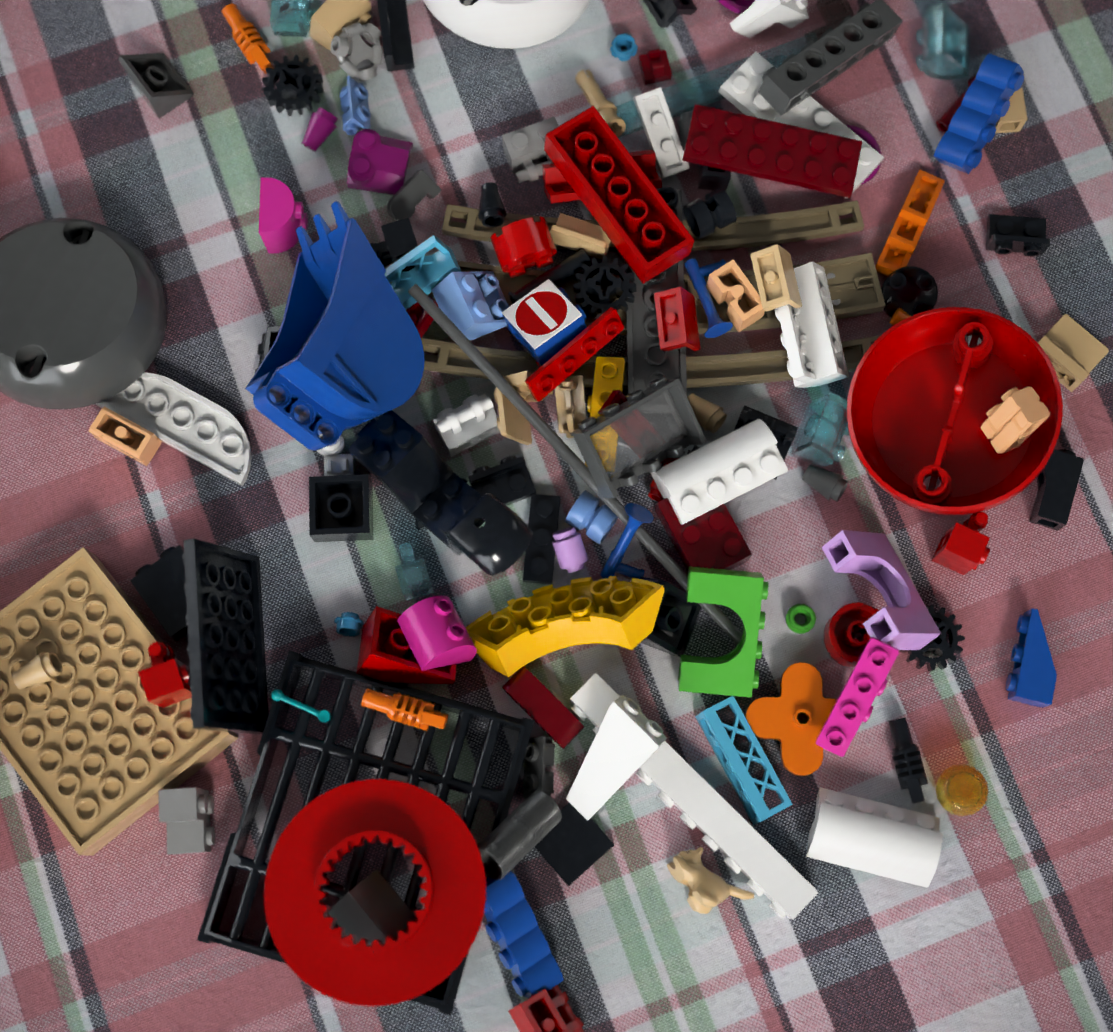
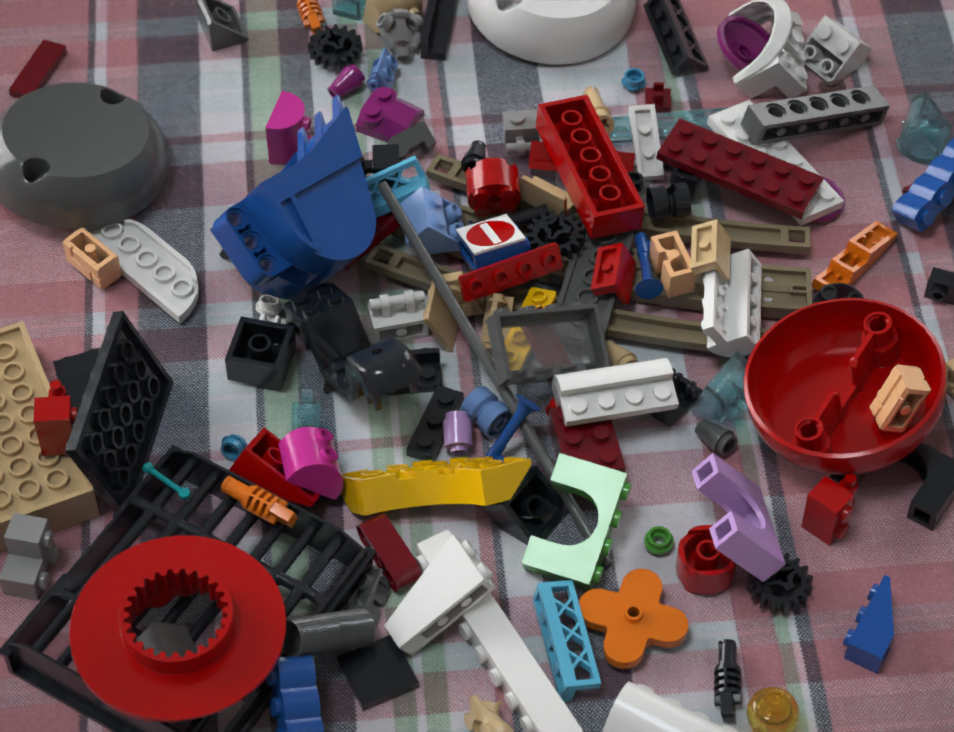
camera: 15 degrees right, 25 degrees down
(857, 696) = (688, 591): dark pink bracket -> none

